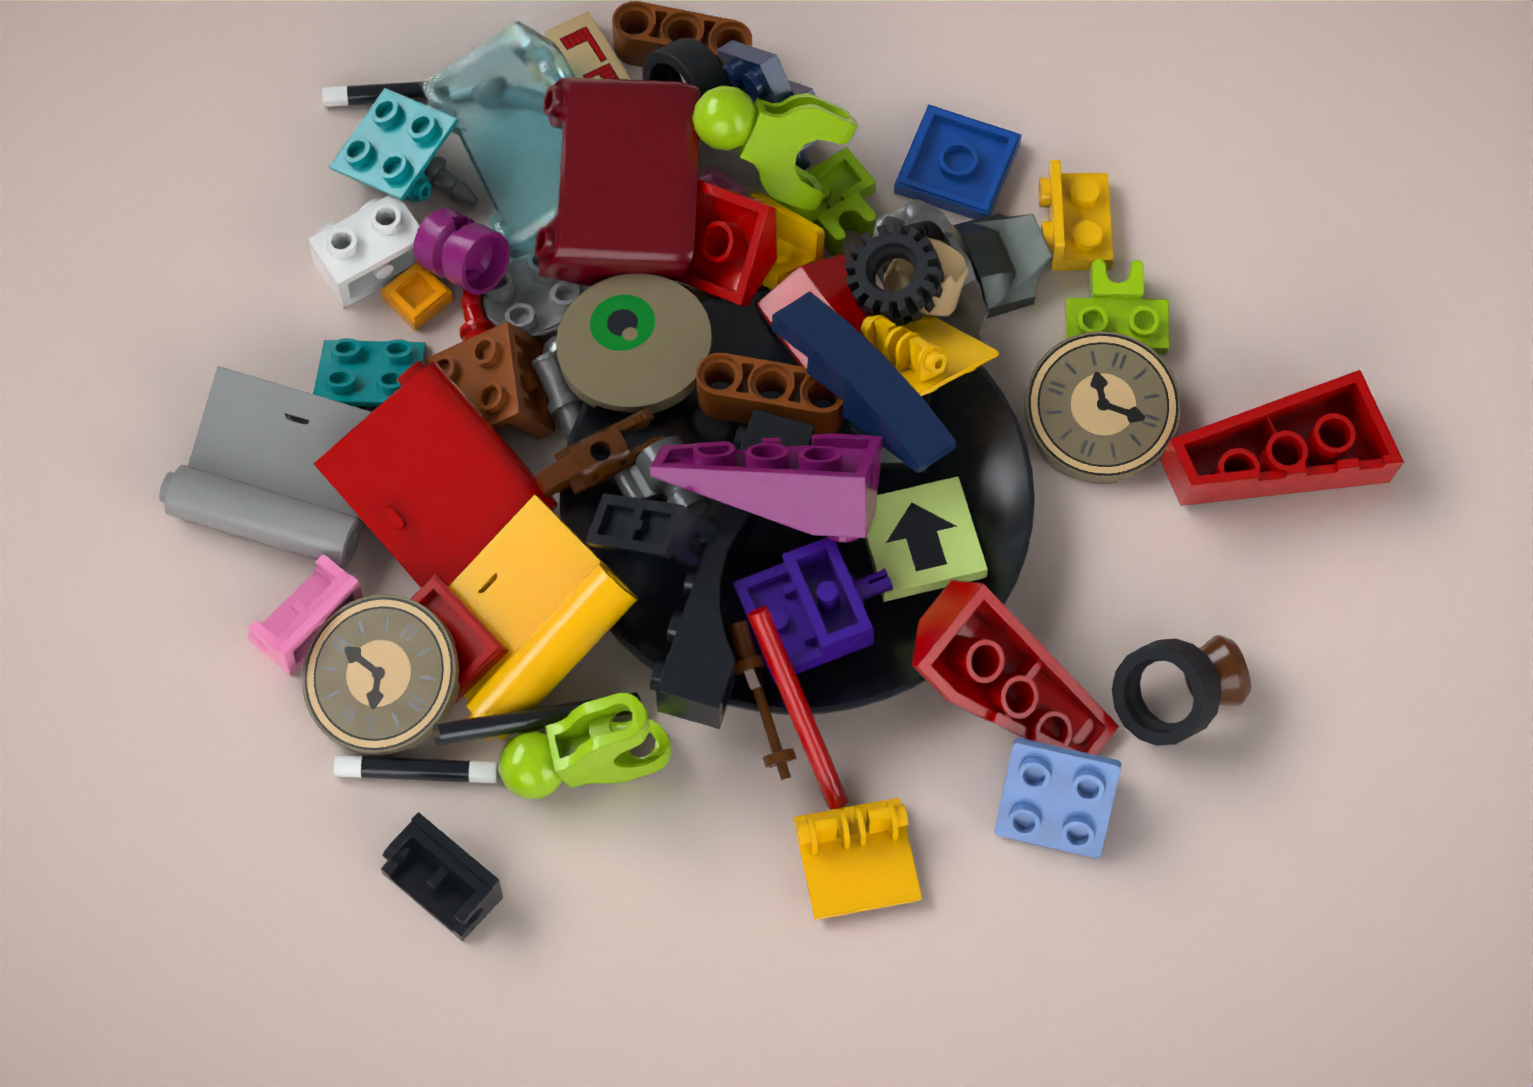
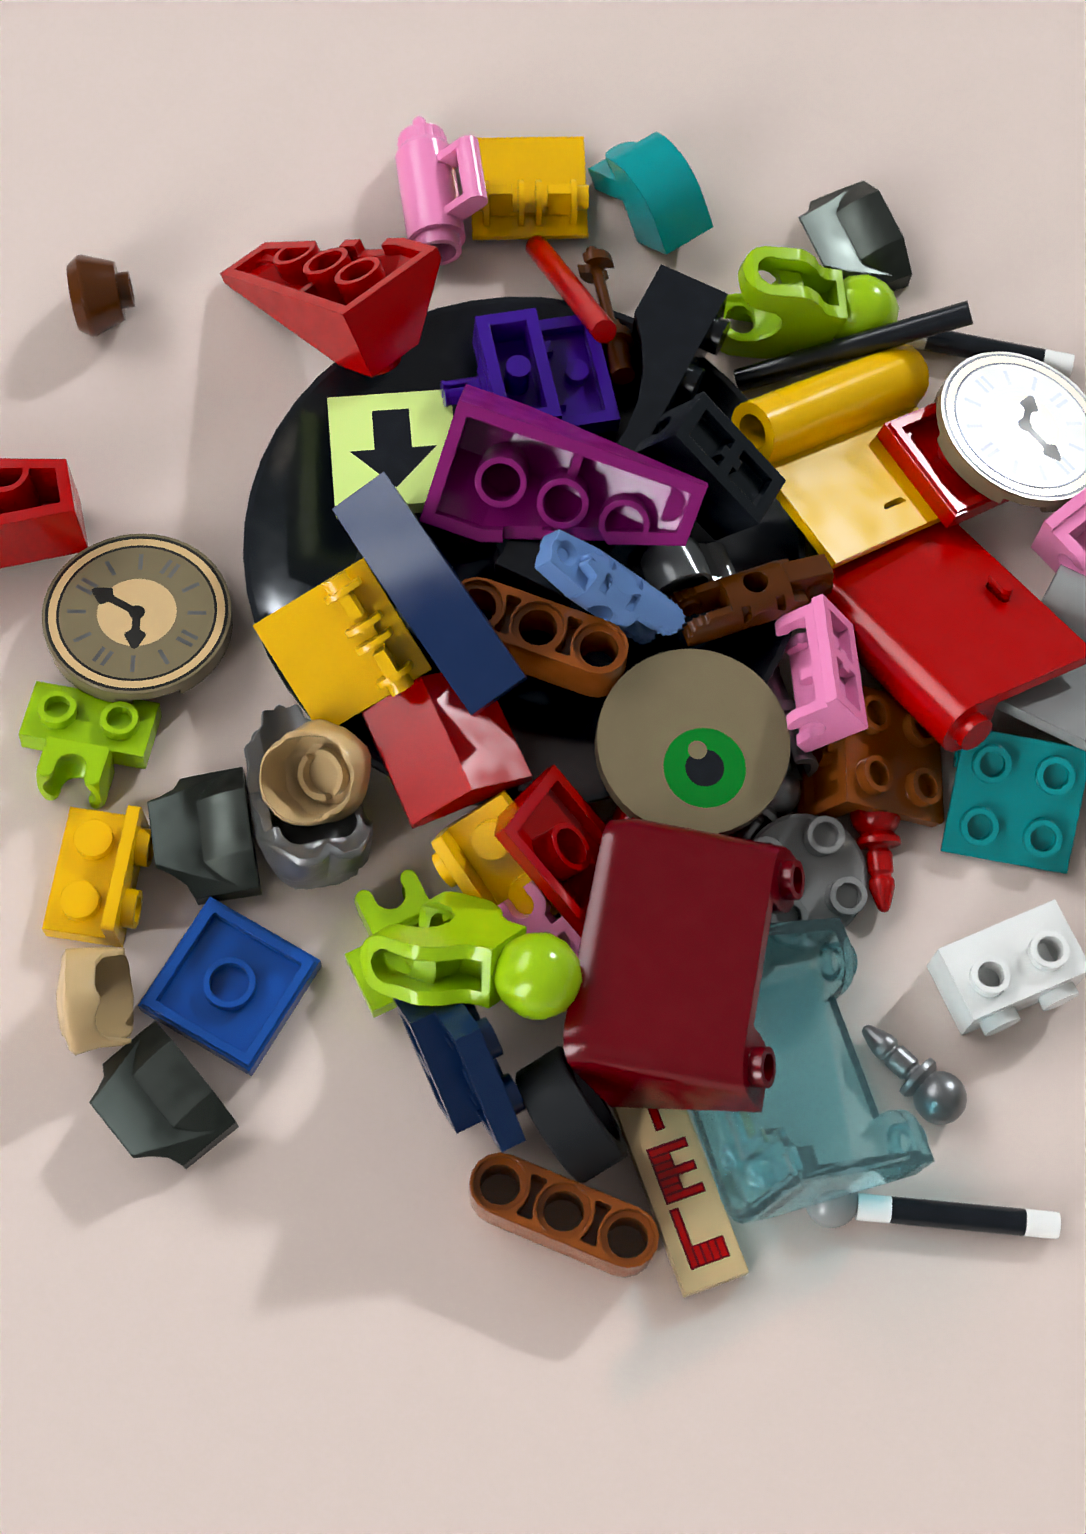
camera: 175 degrees left, 5 degrees up
(395, 146) = (972, 1090): teal hinge -> none
(416, 295) = (948, 909): light orange tile -> none
(441, 877) = (960, 232): black hinge -> none
(461, 251) = (875, 908): magenta wheel -> none
(532, 402) = (823, 675): none -> bright pink hinge
(549, 850) = (858, 235): none -> pearl dark grey slope
(720, 412) = (607, 588): none -> medium blue hinge
(745, 850) = (656, 191): none -> teal brick
(890, 246) = (372, 707): black tyre -> none
(940, 821) = (430, 186): none -> bright pink piece
(989, 77) = (160, 1101): none -> pearl dark grey slope
(1052, 121) = (95, 998): none -> tan hair
(1057, 797) = (298, 203): medium blue bracket -> none
(1132, 708) = (161, 264): black tyre -> none

